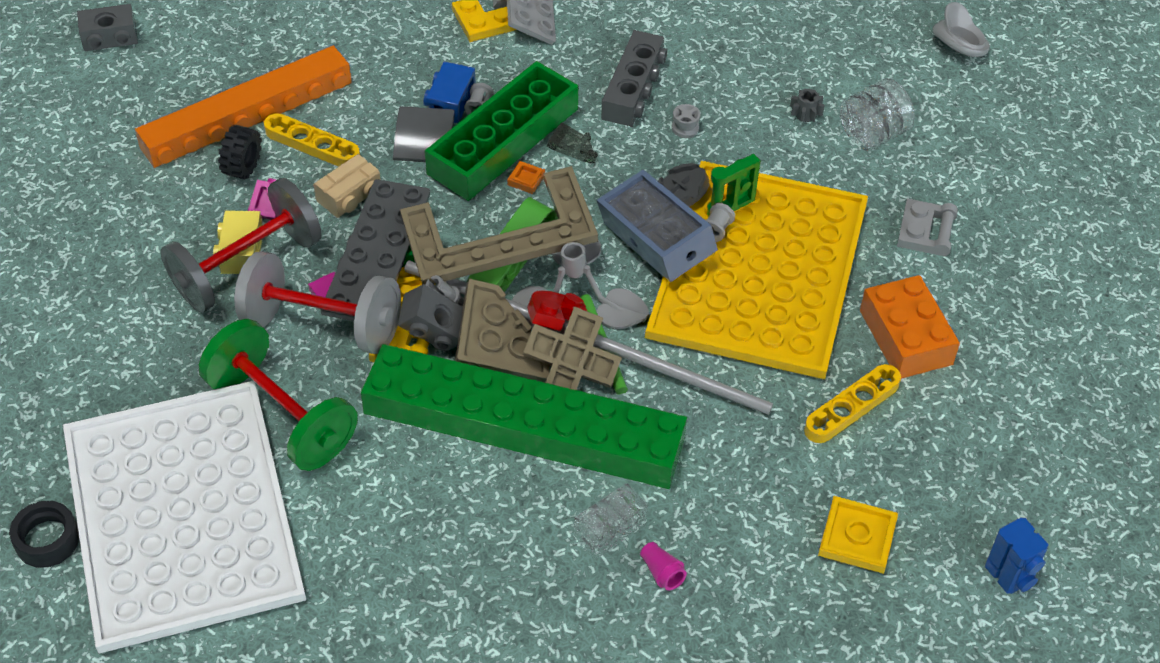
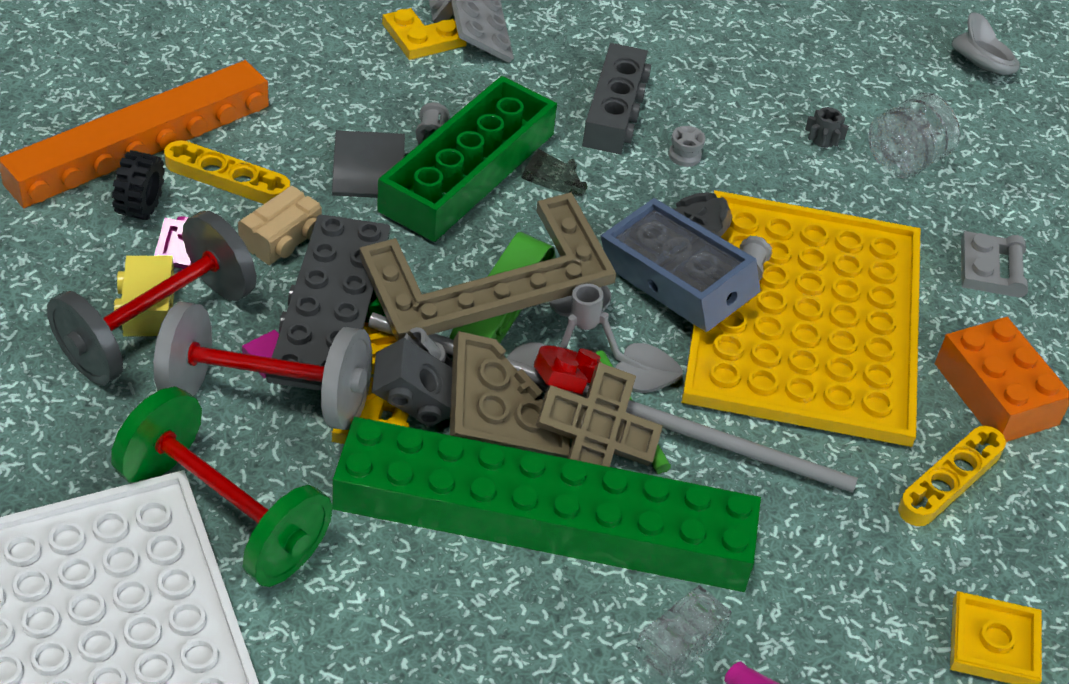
camera: 10 degrees left, 5 degrees down
(451, 88) = (396, 109): blue brick -> none
(526, 177) = (502, 213): orange tile -> none
(741, 180) = (776, 208): green plate -> none

